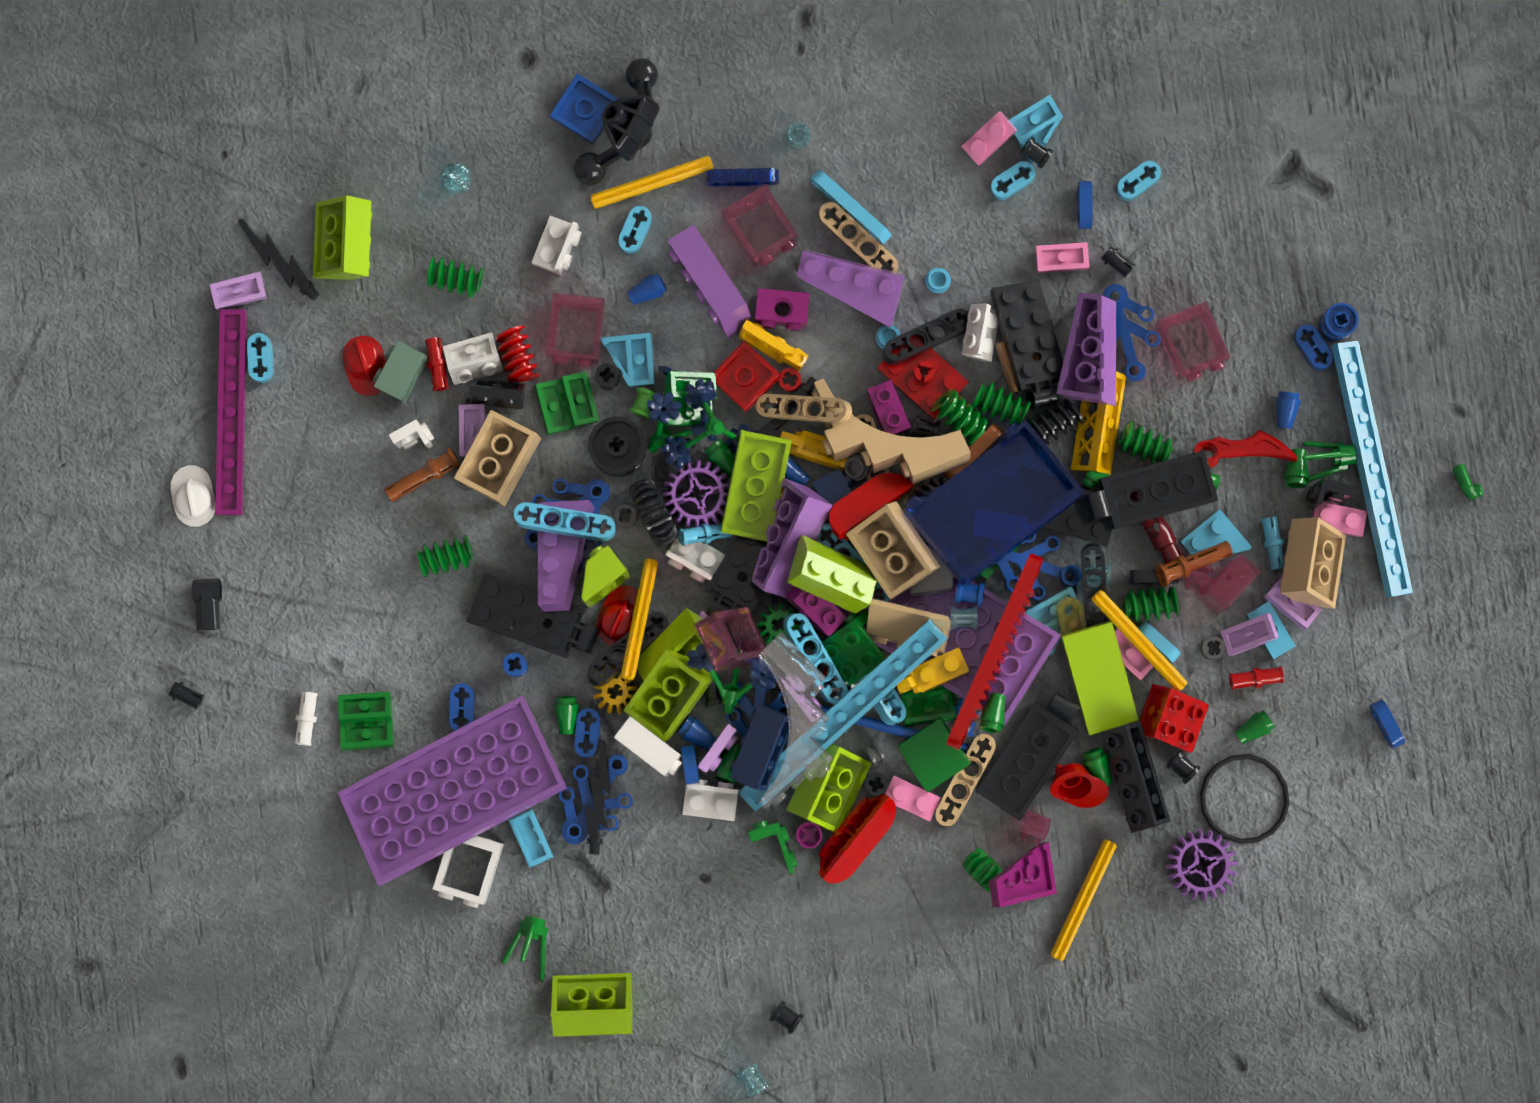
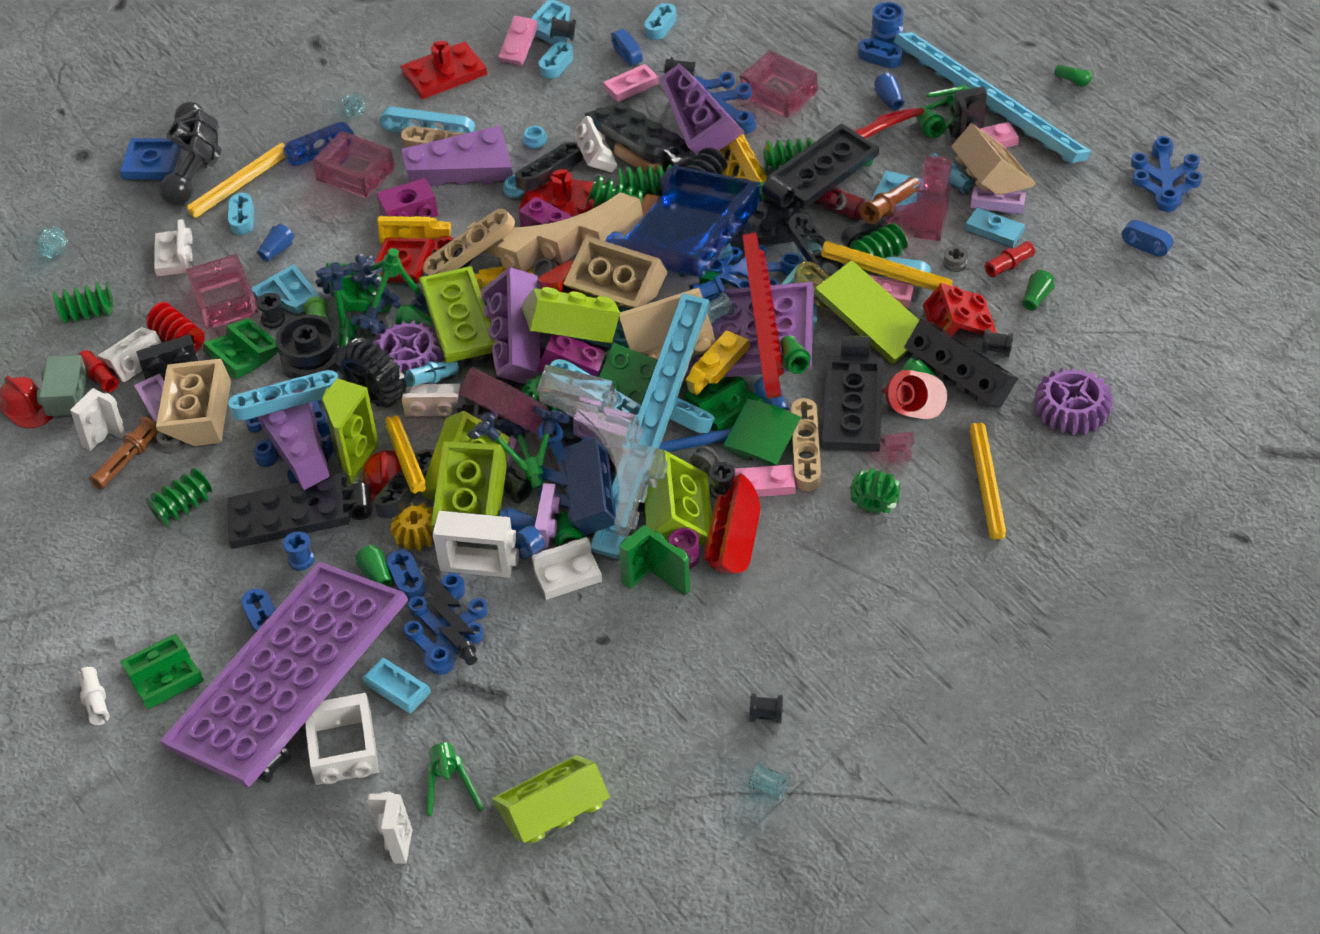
camera: 25 degrees left, 35 degrees down
(467, 978) = (393, 823): none -> white bracket
(710, 281) = (332, 209): medium lavender wedge -> none
(903, 132) = (443, 69): none -> red plate
(1025, 879) = (920, 477): magenta wing -> none
(1217, 829) = (1077, 315): black piece -> none
(1249, 634) = (979, 228): lavender plate -> none
(1457, 658) = (1166, 197): none -> blue plant

